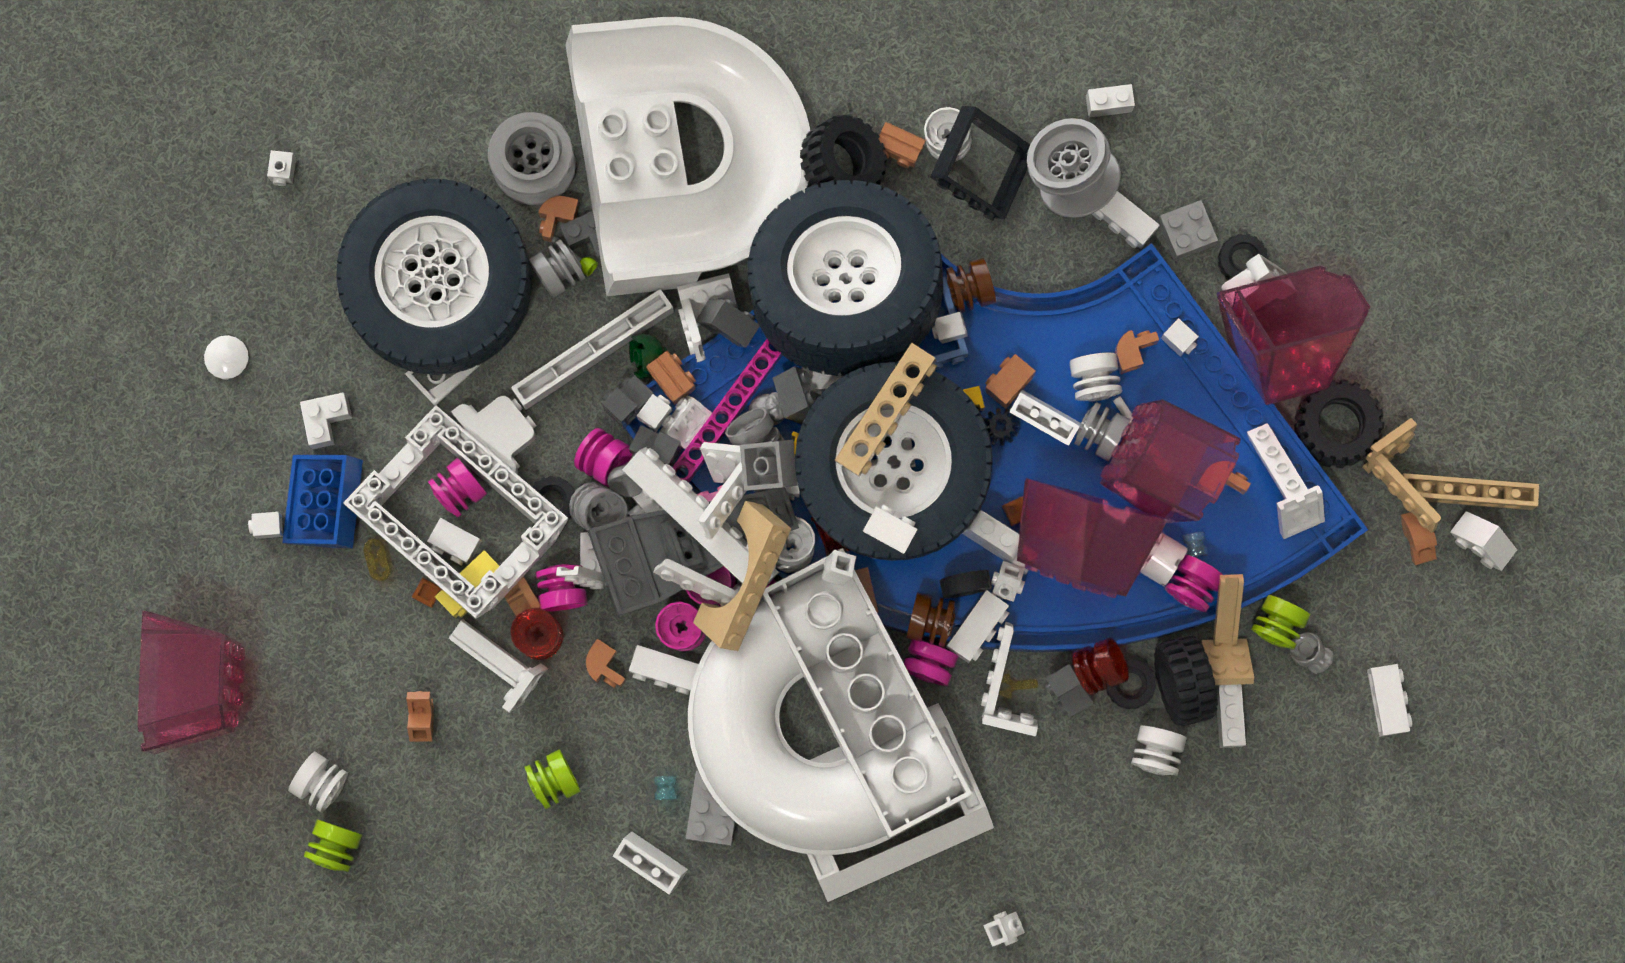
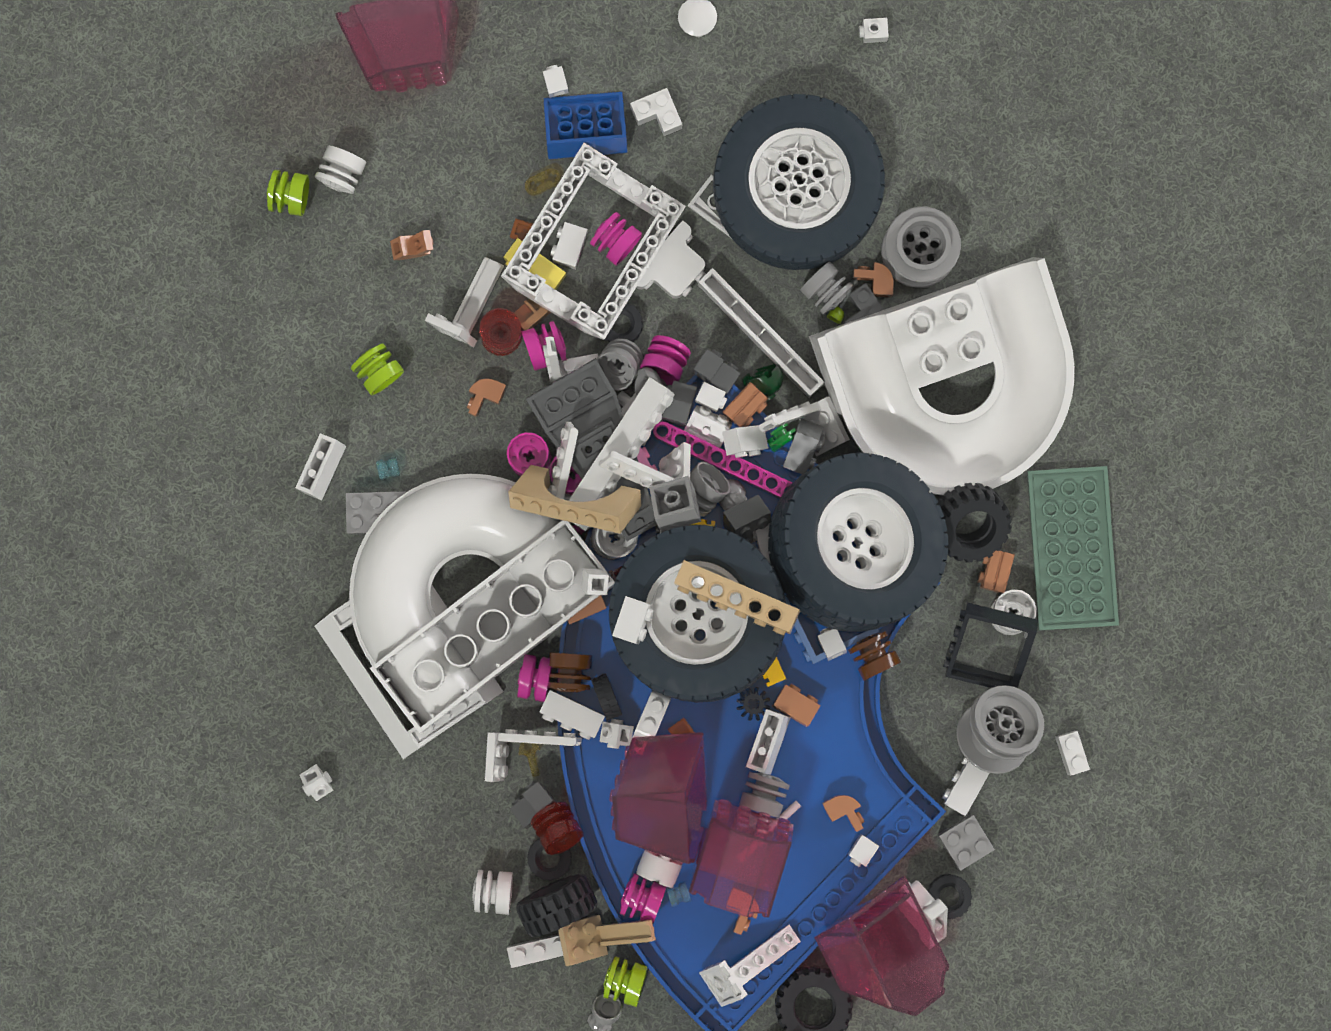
camera: 75 degrees right, 5 degrees up
(663, 669) = (490, 447): white brick -> none
(710, 382) = (744, 440): none -> white brick
(714, 341) = (780, 437): none -> green piece
(888, 60) = (1072, 548): none -> sand green plate
(1095, 376) = (812, 780): white wheel -> none

